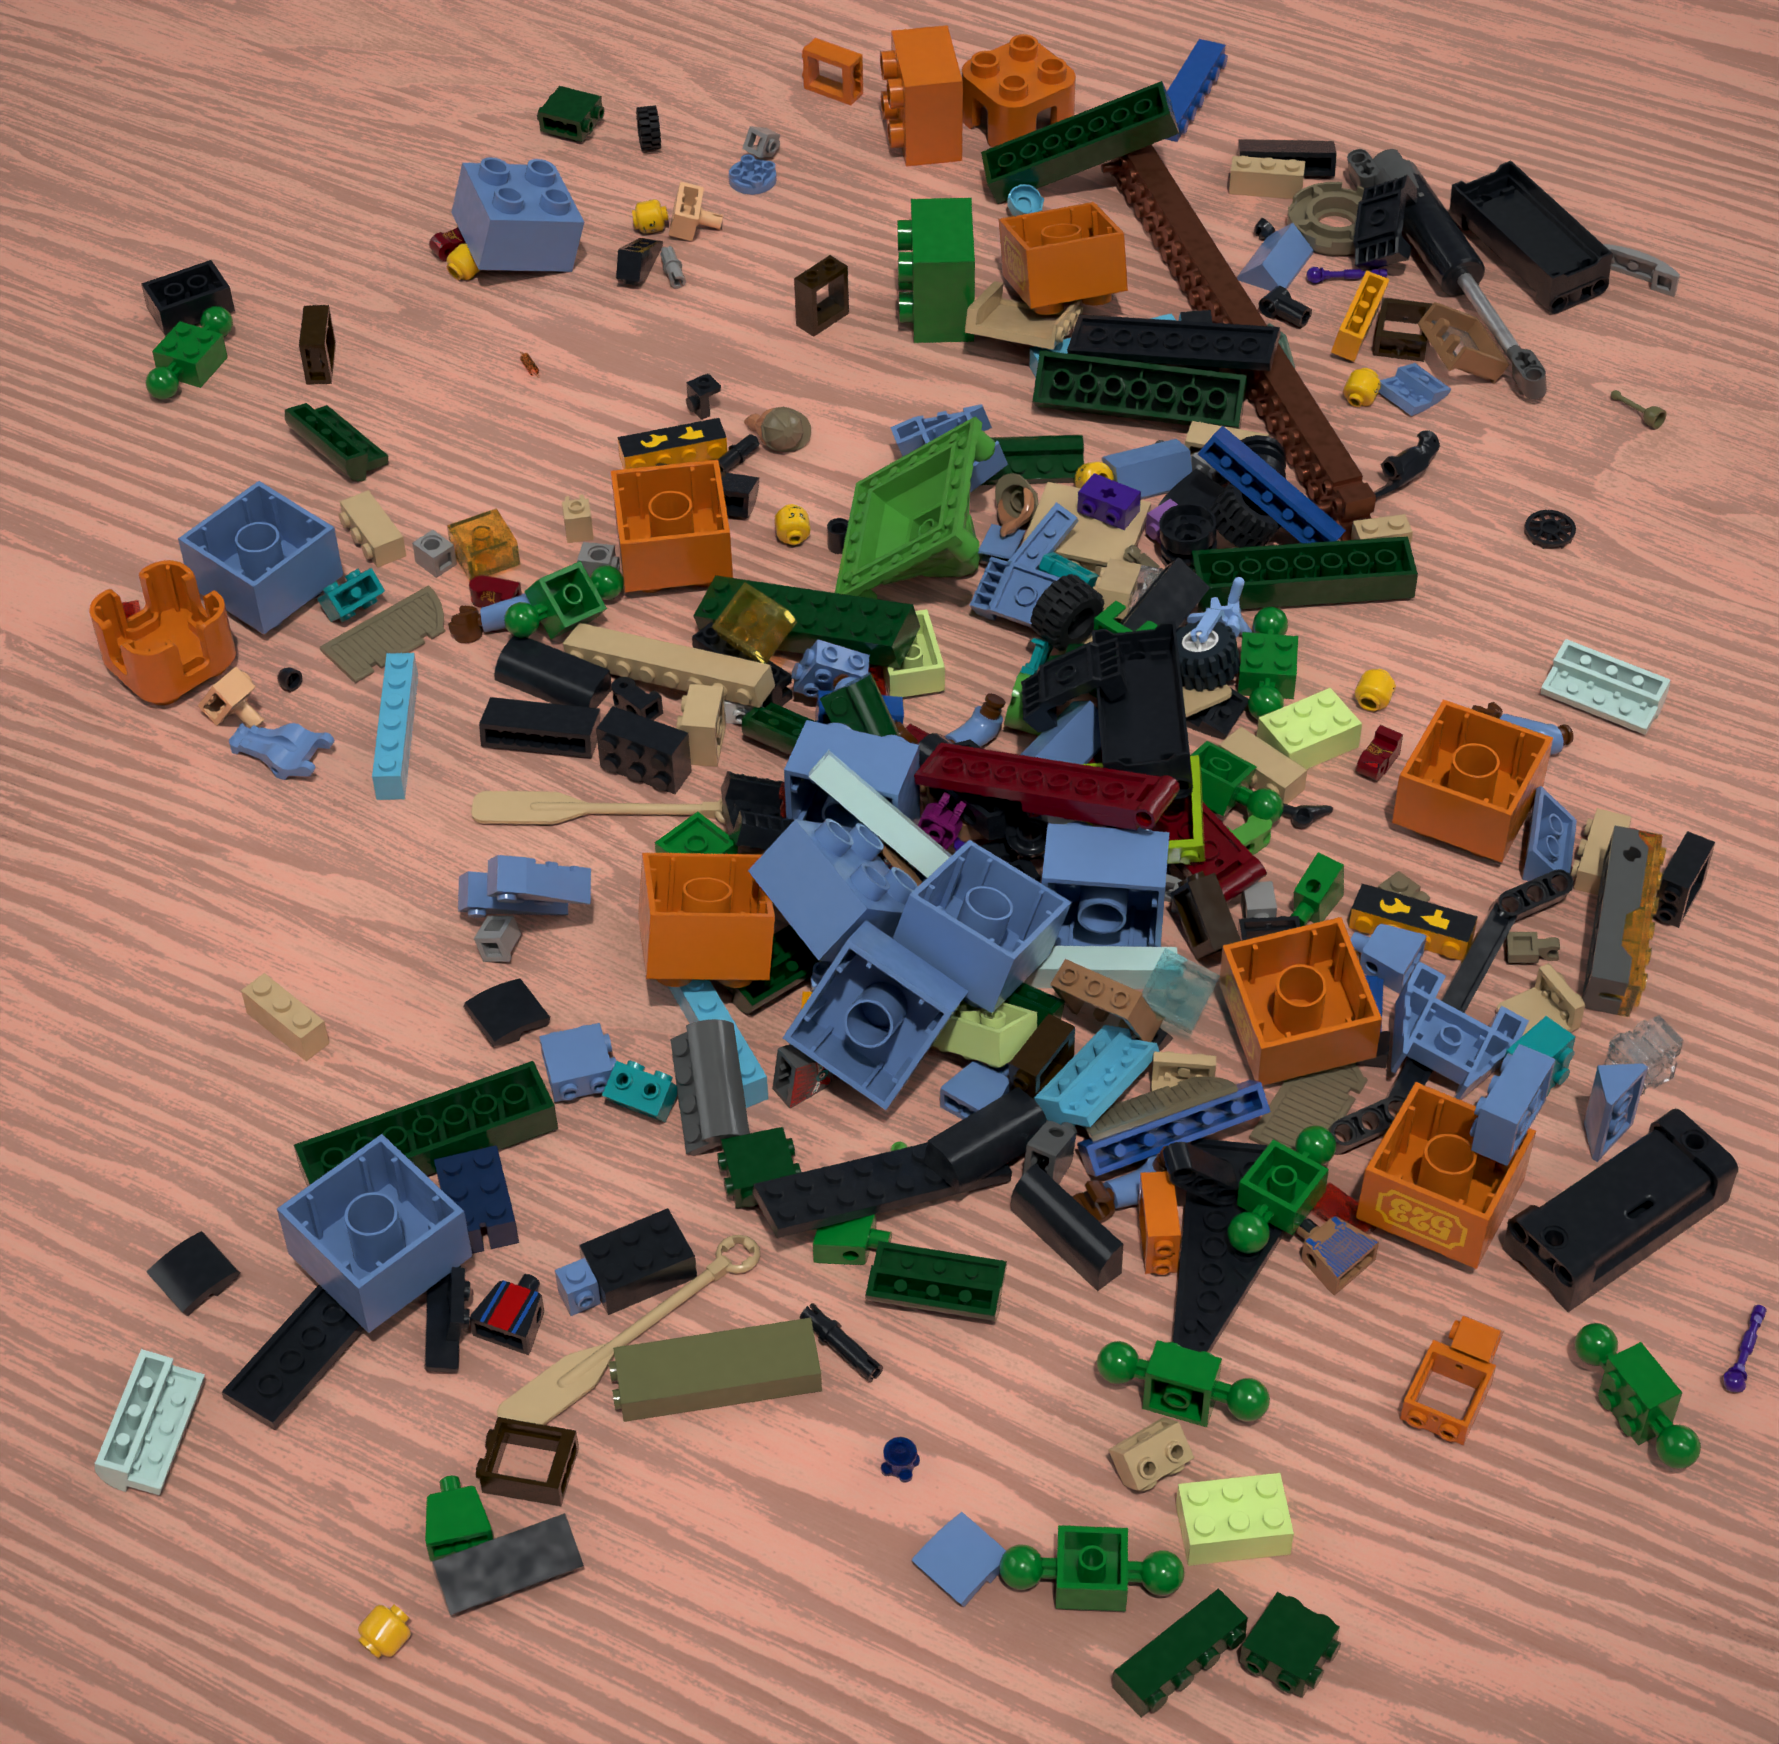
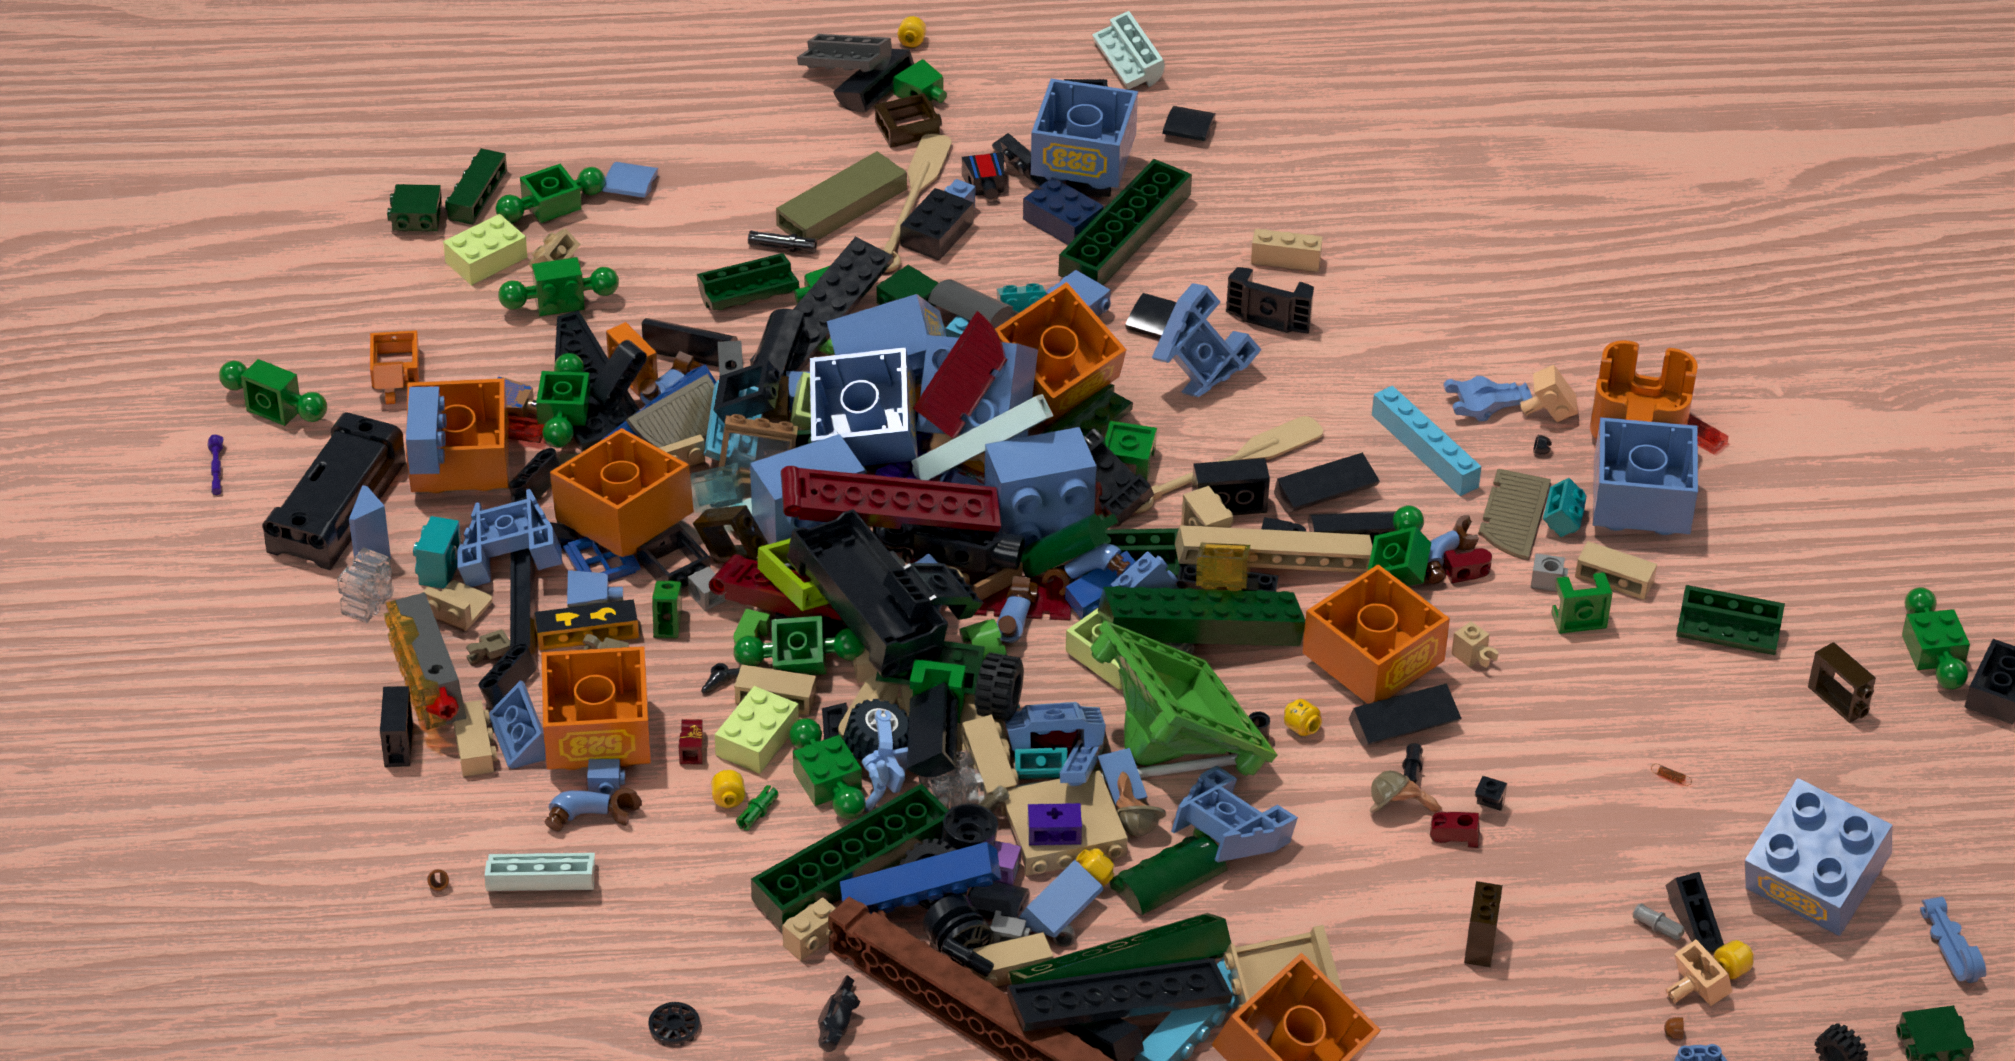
camera: 145 degrees right, 5 degrees down
(370, 921) = (1269, 305): none -> black plate
(446, 492) = (1582, 608): none -> green panel
(484, 544) = (1514, 586): clear yellow brick -> none
(487, 146) = (1963, 959): none -> medium blue piece
(524, 1602) = (847, 52): none -> dark grey brick
(674, 445) = (1466, 743): brick -> none
(742, 200) = (1674, 1028): none -> dark orange hinge
(755, 389) = (1455, 827): none -> dark red leg
(865, 850) = (963, 377): none -> dark red piece
(900, 1459) = (701, 205): clear blue brick -> none
(937, 269) = (1394, 970): green brick -> none
(1057, 1067) = (753, 404): none -> black window
(1273, 430) = (967, 957): none -> black axle
(1354, 670) = (757, 807): none -> green pin
(1706, 730) = (444, 879): none -> dark orange hinge

